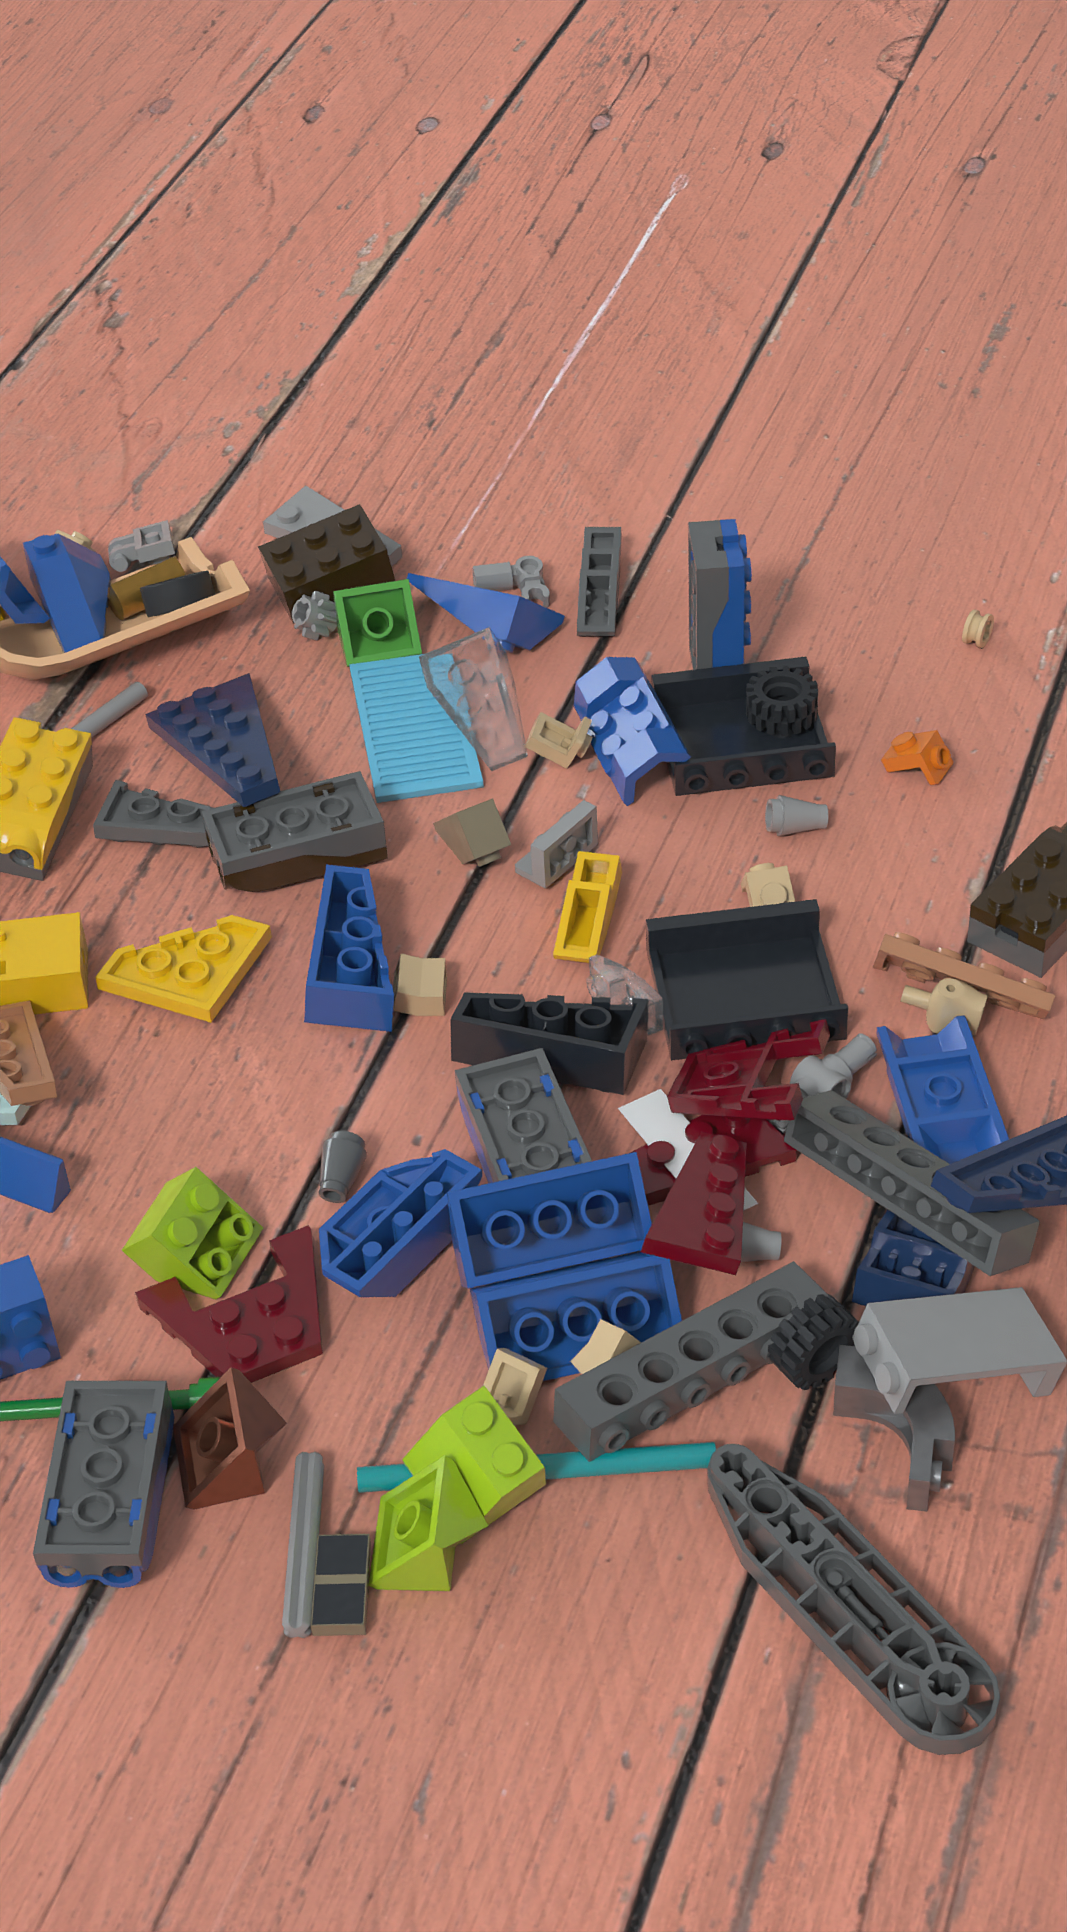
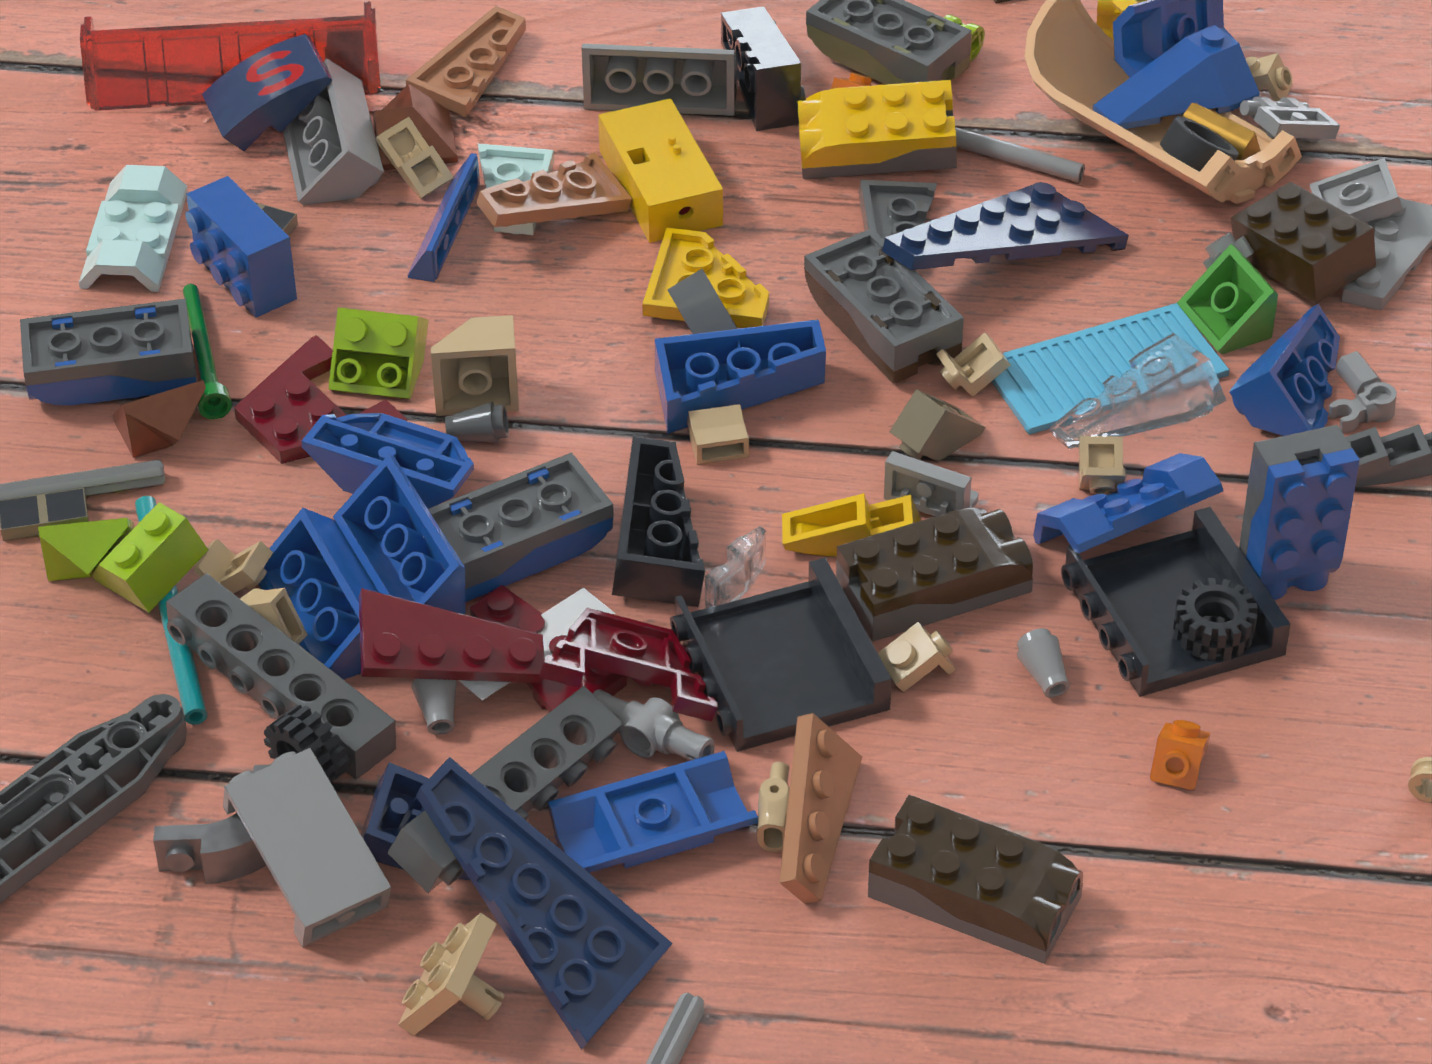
camera: 75 degrees right, 0 degrees up
(257, 959) = (701, 305): none -> dark grey slope
(268, 518) = (1361, 192): none -> light grey plate
(275, 1135) = (476, 366): none -> tan slope
(395, 793) = (974, 365): none -> tan bracket
(665, 856) = (933, 570): none -> dark brown piece

